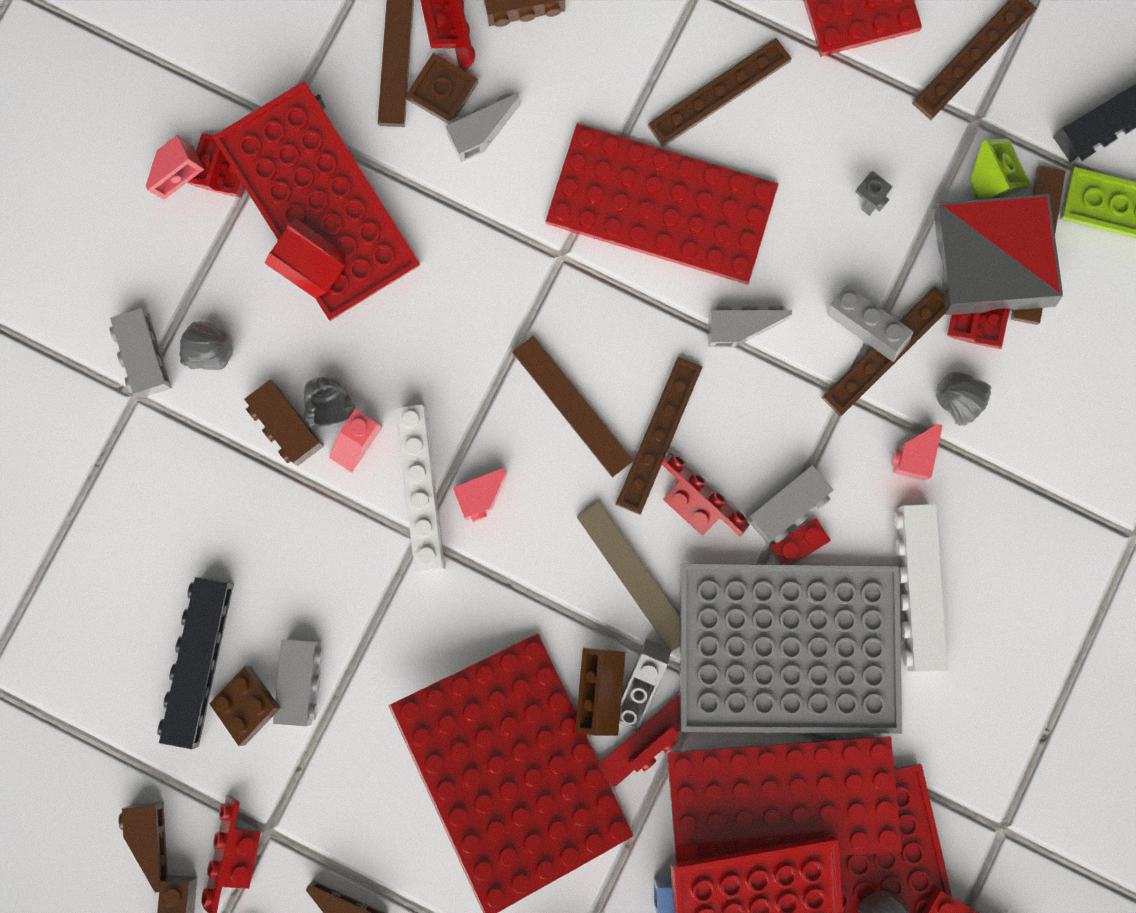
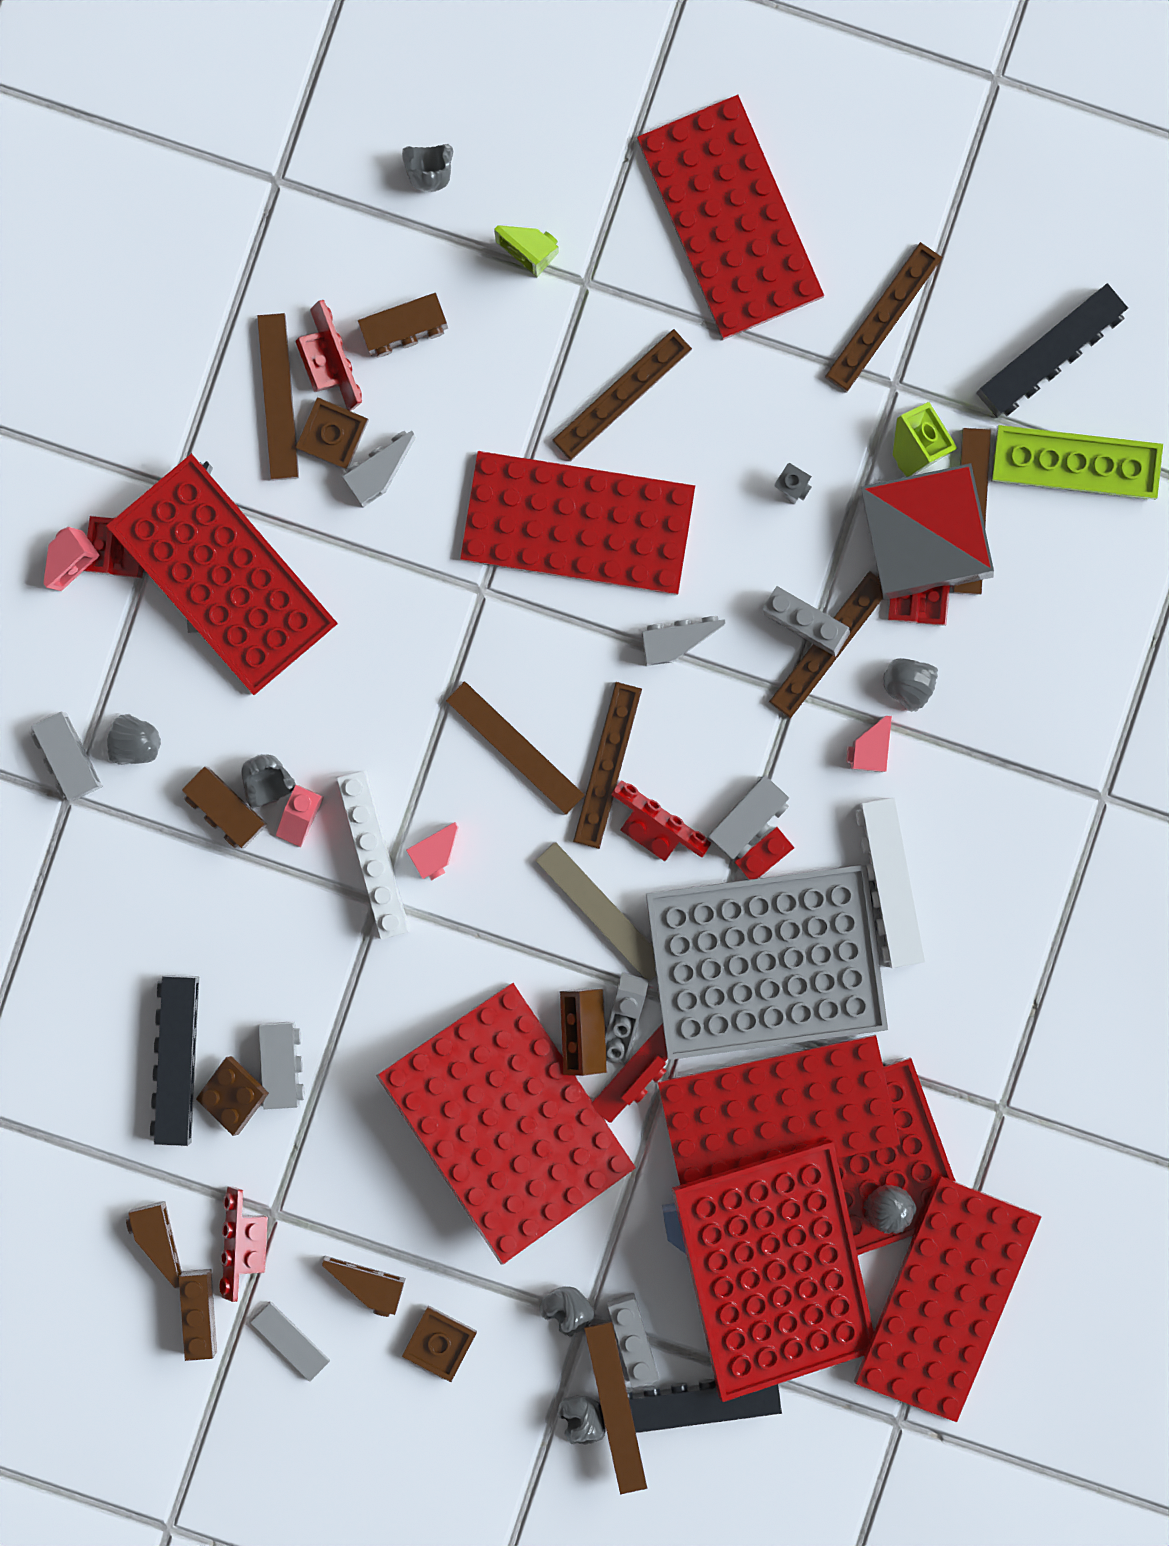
camera: 10 degrees left, 5 degrees up
(306, 259) = (223, 639): red slope -> none

